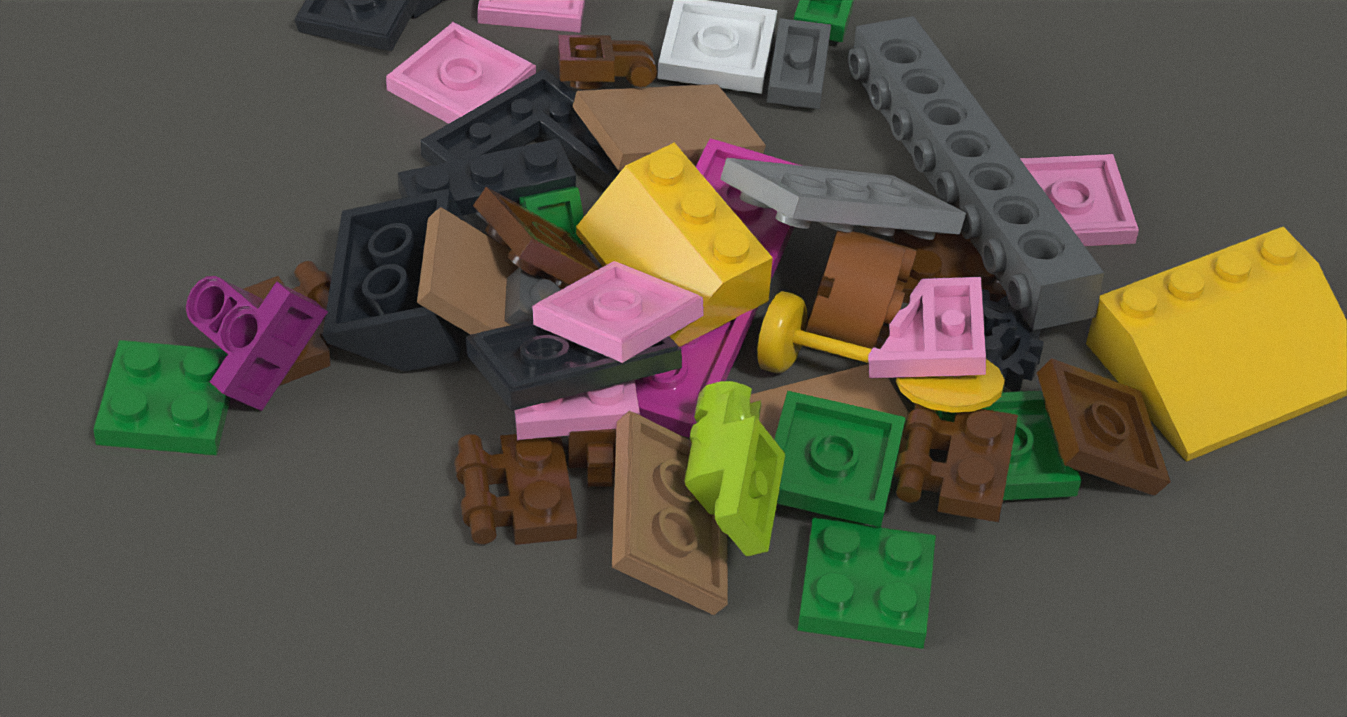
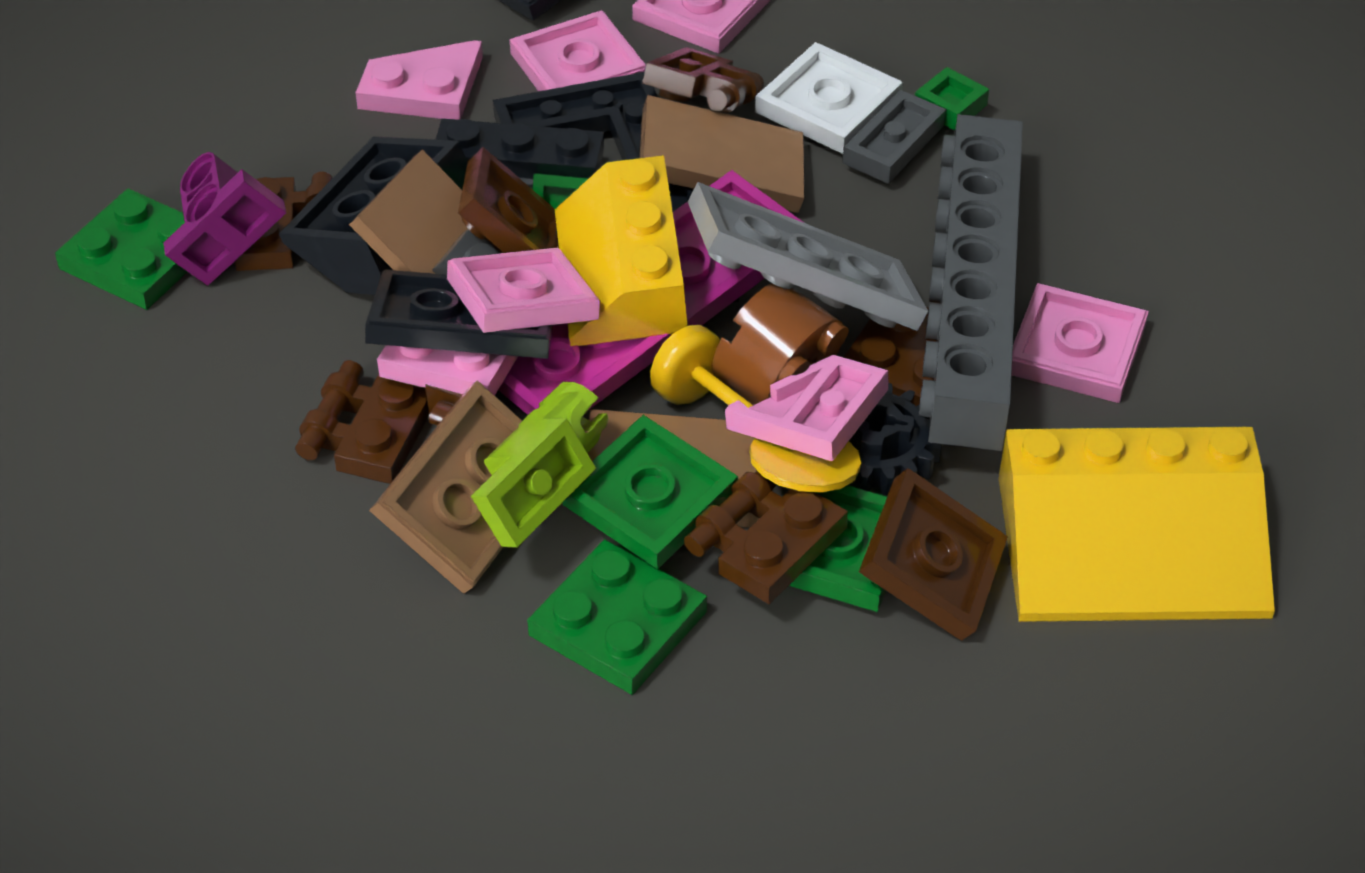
camera: 30 degrees right, 0 degrees up
(327, 143) = (422, 81): none -> bright pink wing

